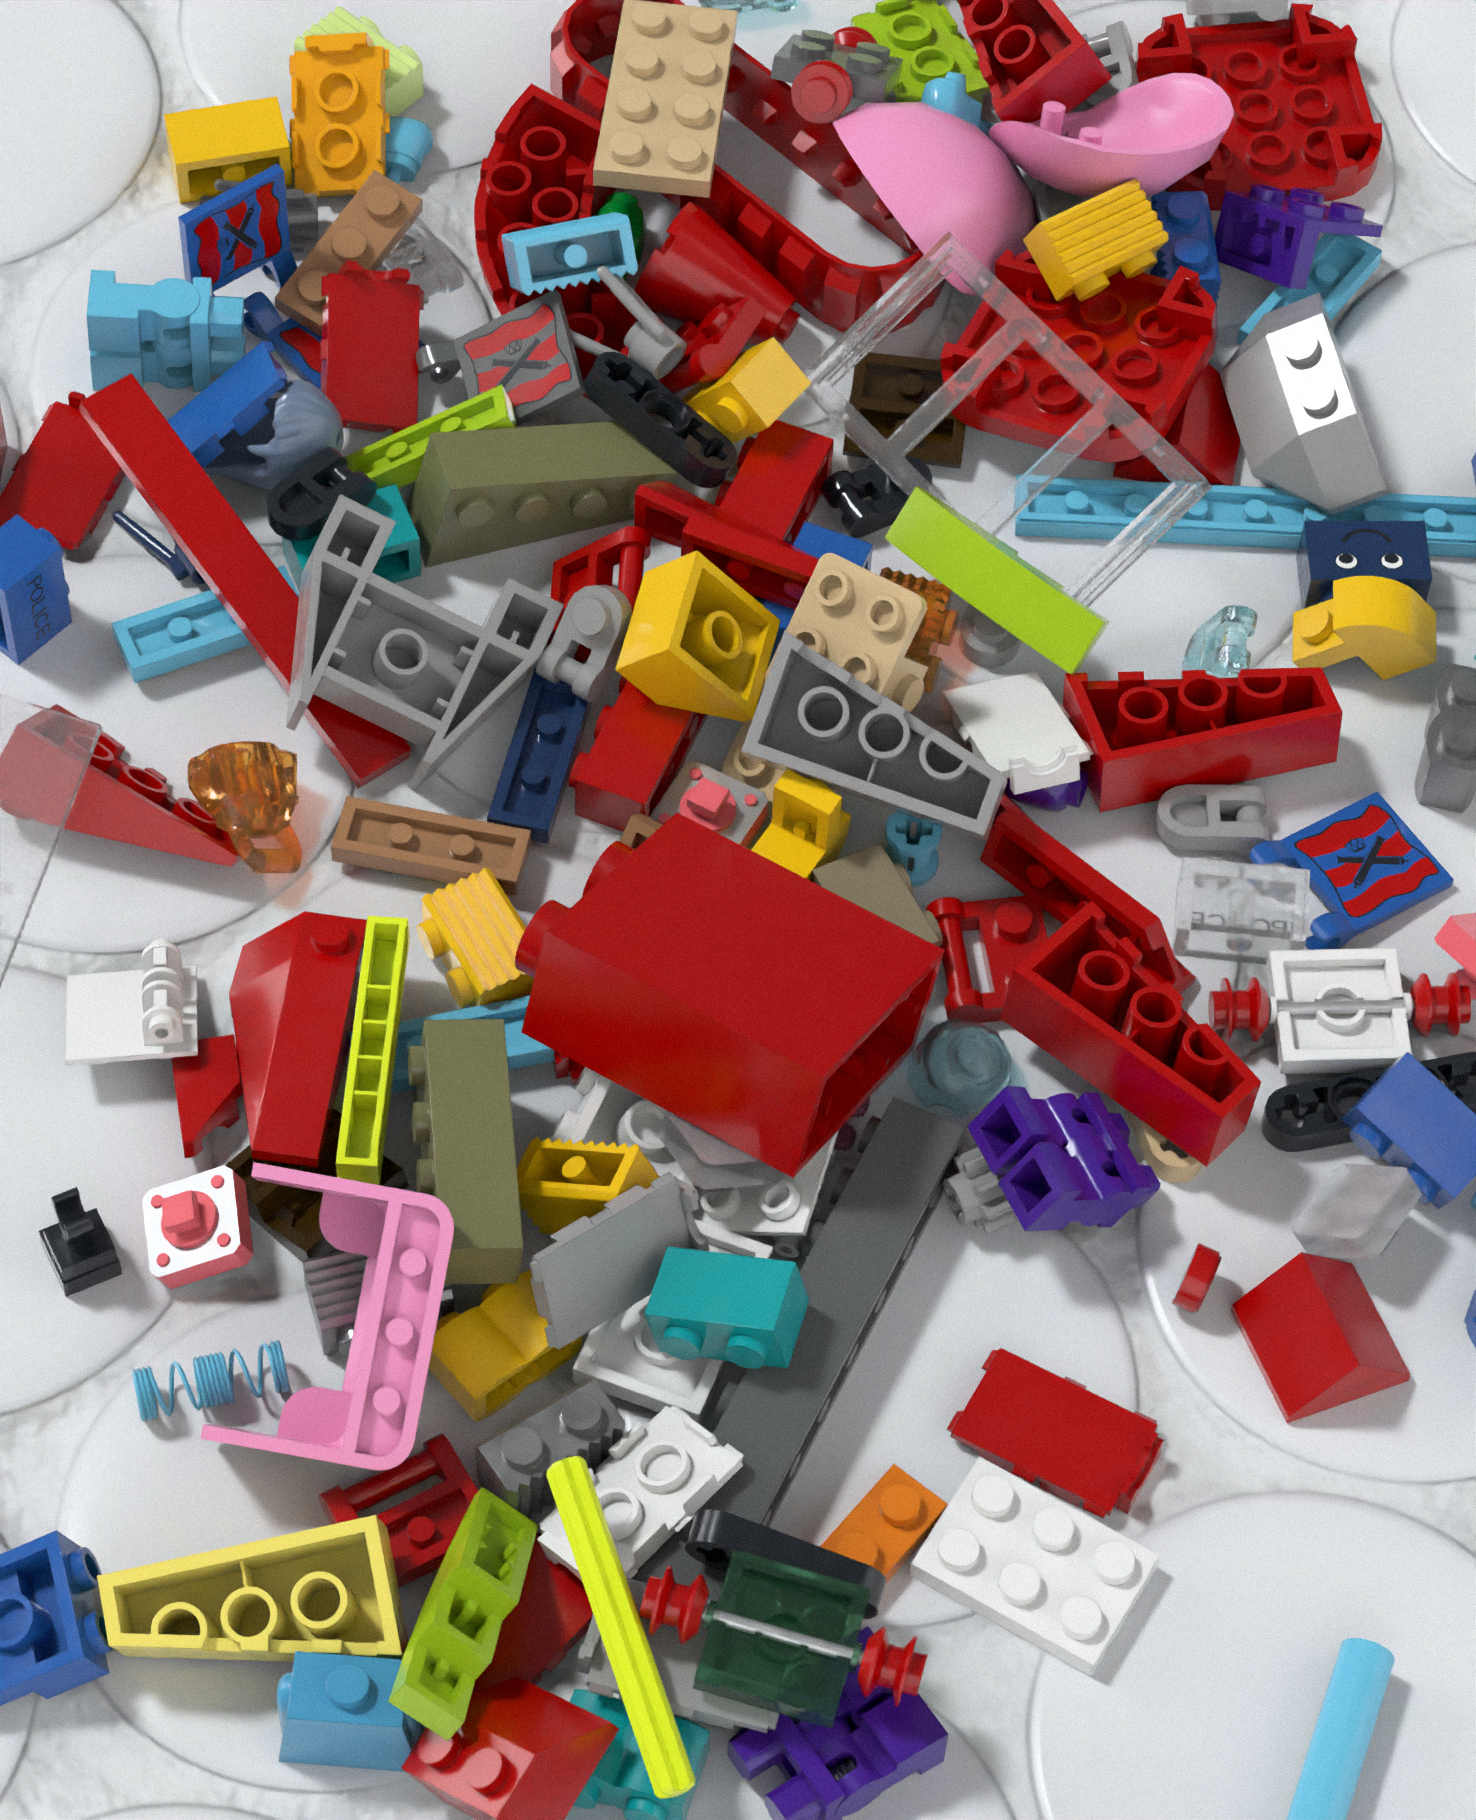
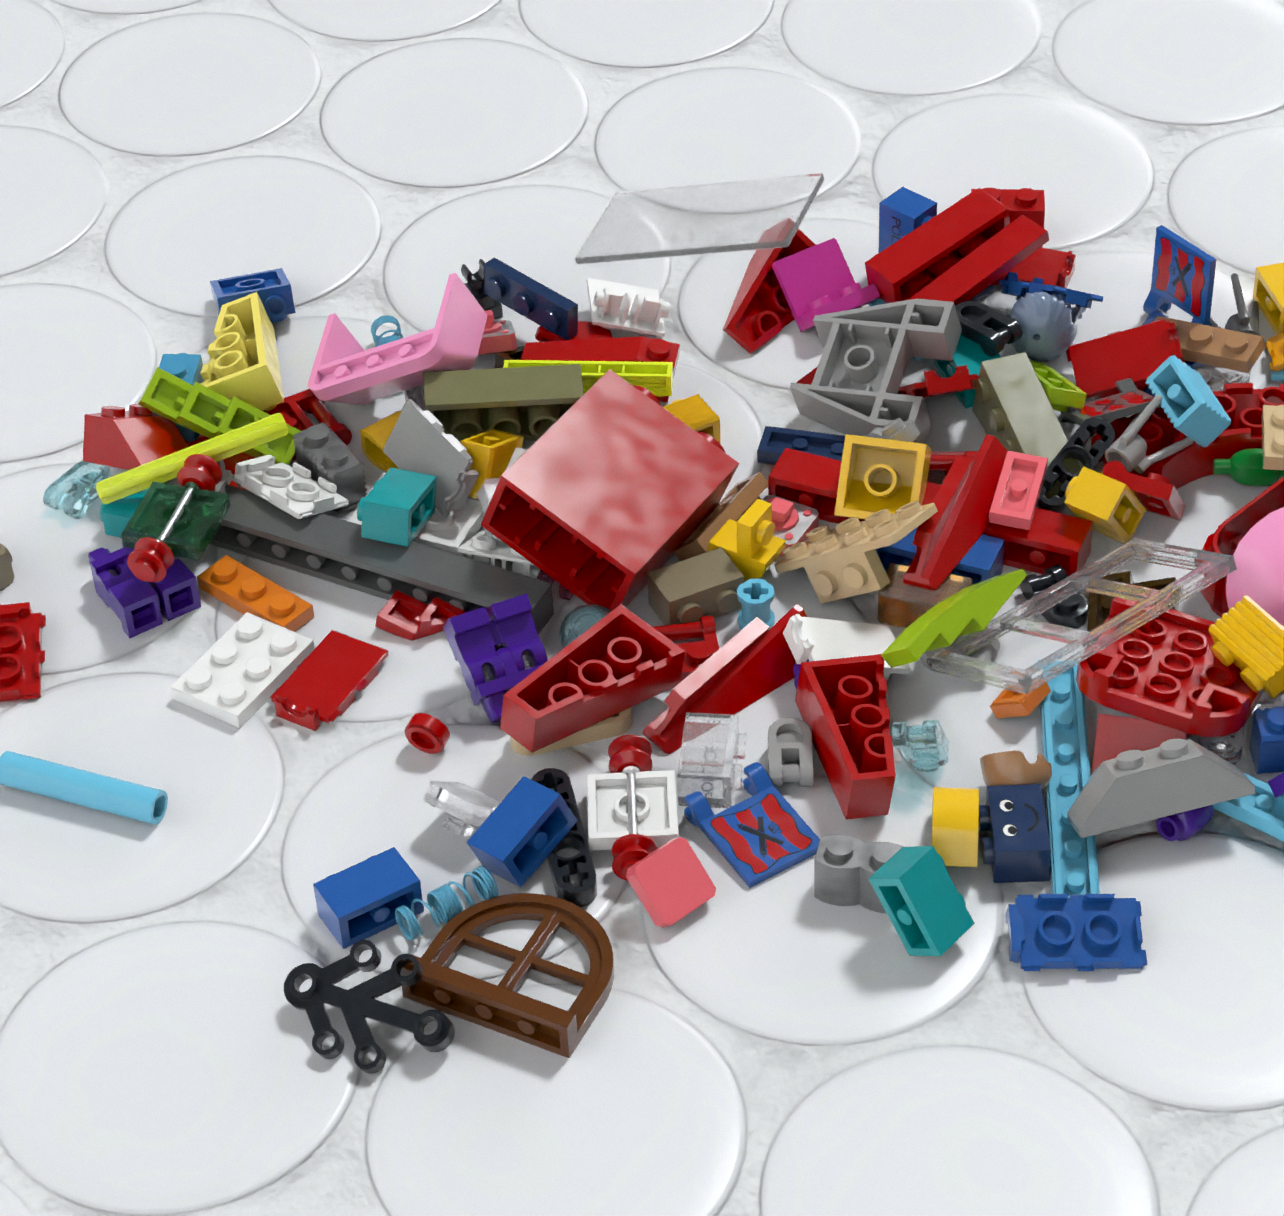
camera: 95 degrees right, 15 degrees down
(107, 537) = (936, 246): none -> red wedge
(153, 1132) = (531, 299): none -> dark blue plate
(156, 717) = (820, 283): none -> dark pink bracket
(162, 331) = (1116, 270): medium azure hips -> none
(252, 796) = (771, 333): clear orange piece -> none
(428, 843) = (748, 411): medium nougat plate -> none
(460, 559) = (937, 386): none -> red piece
(708, 267) = (1215, 489): red cone -> none
(719, 1533) = (231, 535): black beam -> none
(732, 480) = (1018, 490): none -> coral plate
(866, 745) = (791, 537): light grey wedge -> none
(913, 1316) = (414, 619): none -> red slope
(1089, 538) = (1018, 704): none -> orange tile
(1263, 555) = (1014, 769): none -> medium nougat hair
(1317, 1336) = (386, 802): red slope -> none

